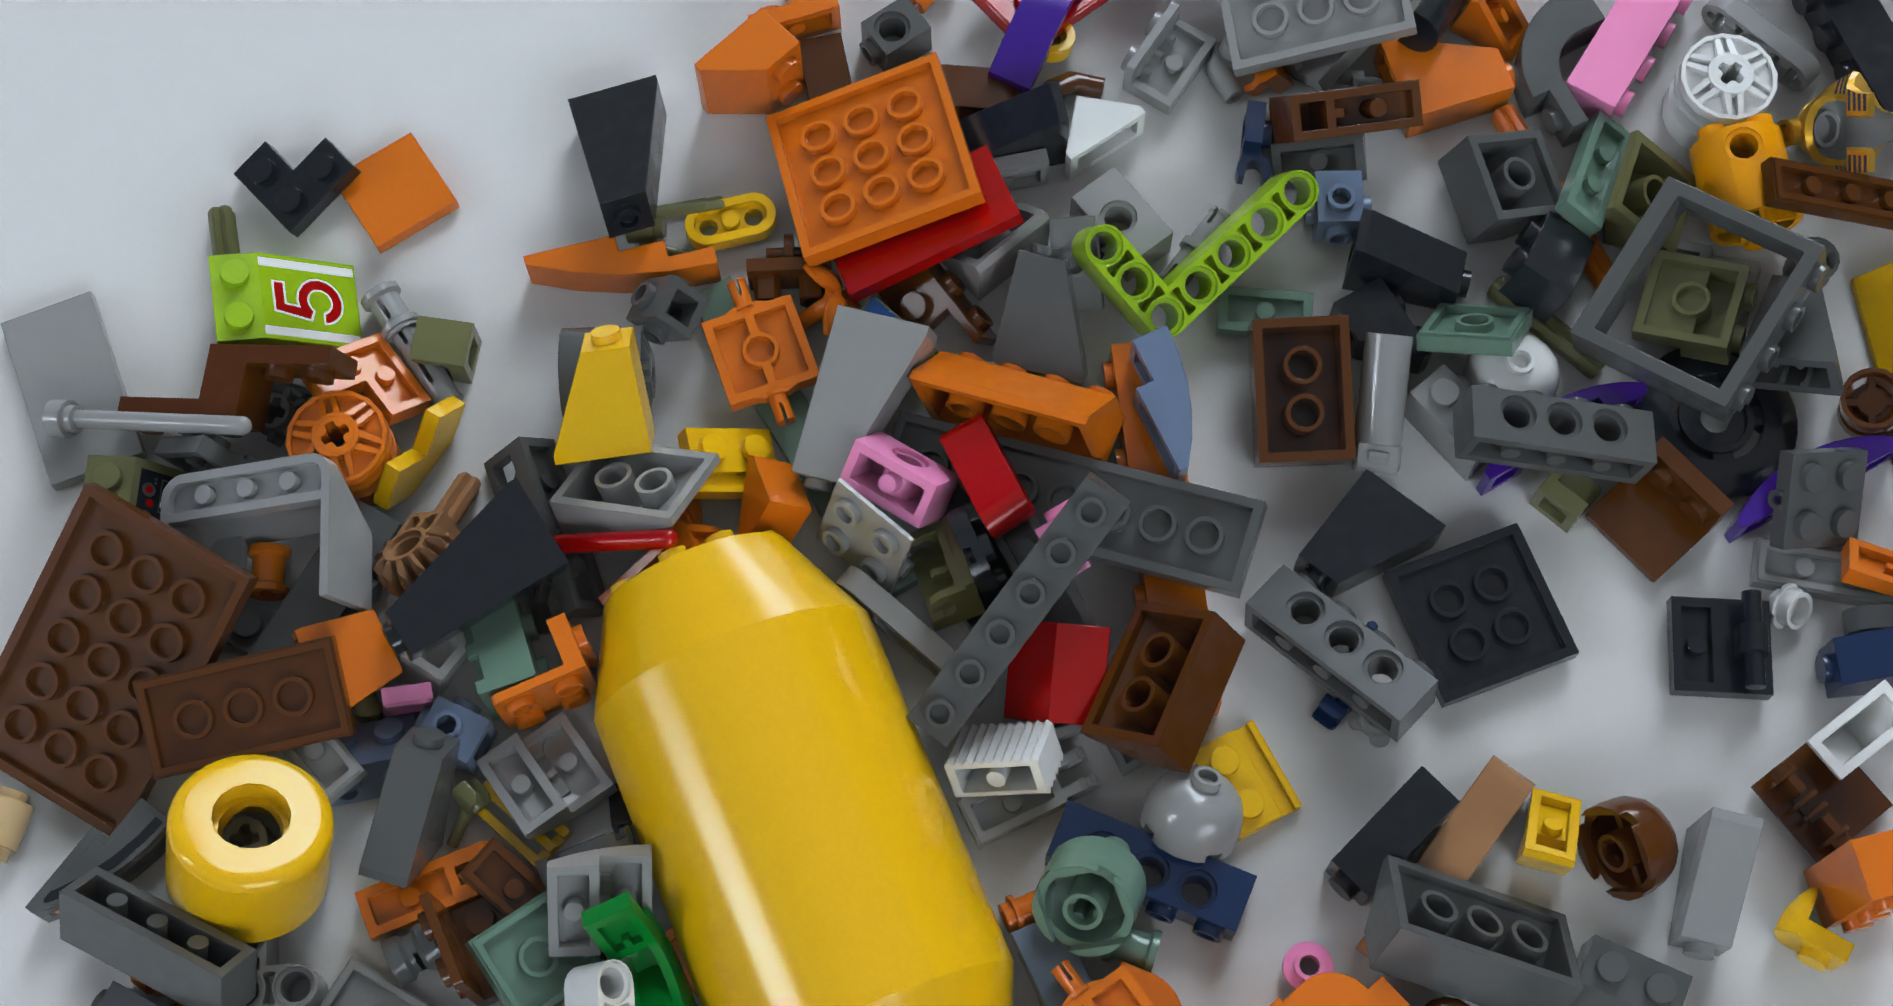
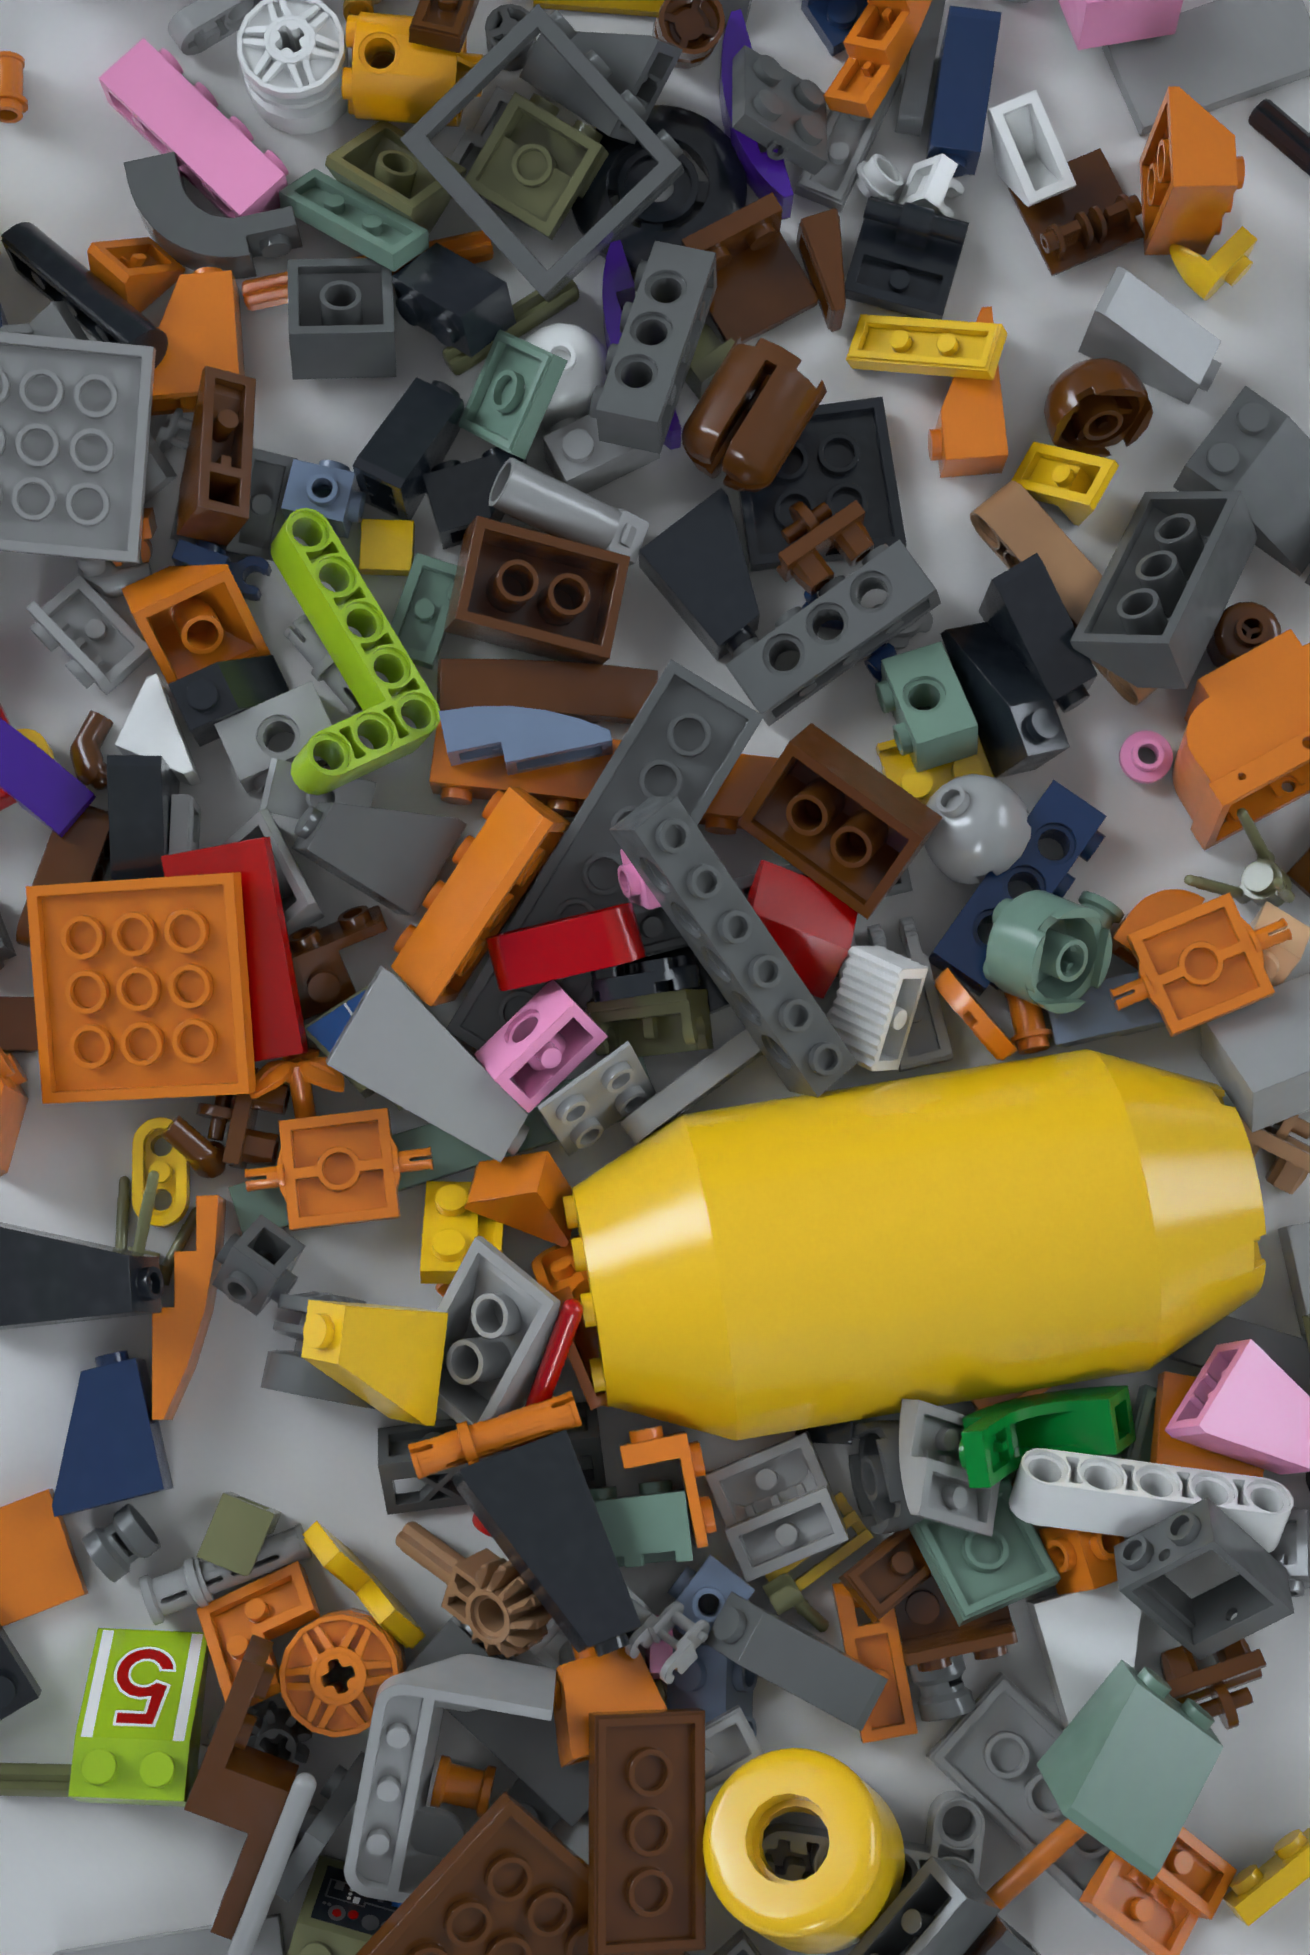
camera: 80 degrees left, 10 degrees up
(418, 683) = (657, 1628): none -> light grey piece
(423, 263) = (121, 1543): none -> dark grey wheel
(497, 232) = (111, 1439): none -> dark blue slope
(545, 493) = (494, 1435): none -> orange pin
(754, 237) = (201, 1154): none -> reddish brown arm
(1018, 857) = (974, 1015): none -> orange tile
(1148, 171) = (225, 691): none -> black slope
(1196, 135) = (193, 618): none -> orange slope
(1219, 415) = (561, 687): none -> reddish brown slope
(1277, 769) = (927, 680): none -> sand green brick
(1314, 271) = (386, 547): none -> yellow tile
(1322, 820) = (1010, 706): none -> black slope
(1424, 616) = (841, 531): none -> reddish brown hips
(1514, 528) = (751, 415): none -> reddish brown cylinder
(1594, 734) = (971, 425): none -> orange slope
(1638, 678) = (927, 346): none -> yellow tile
(1701, 572) = (822, 256): none -> reddish brown slope
(1797, 651) = (930, 183): none -> white tile

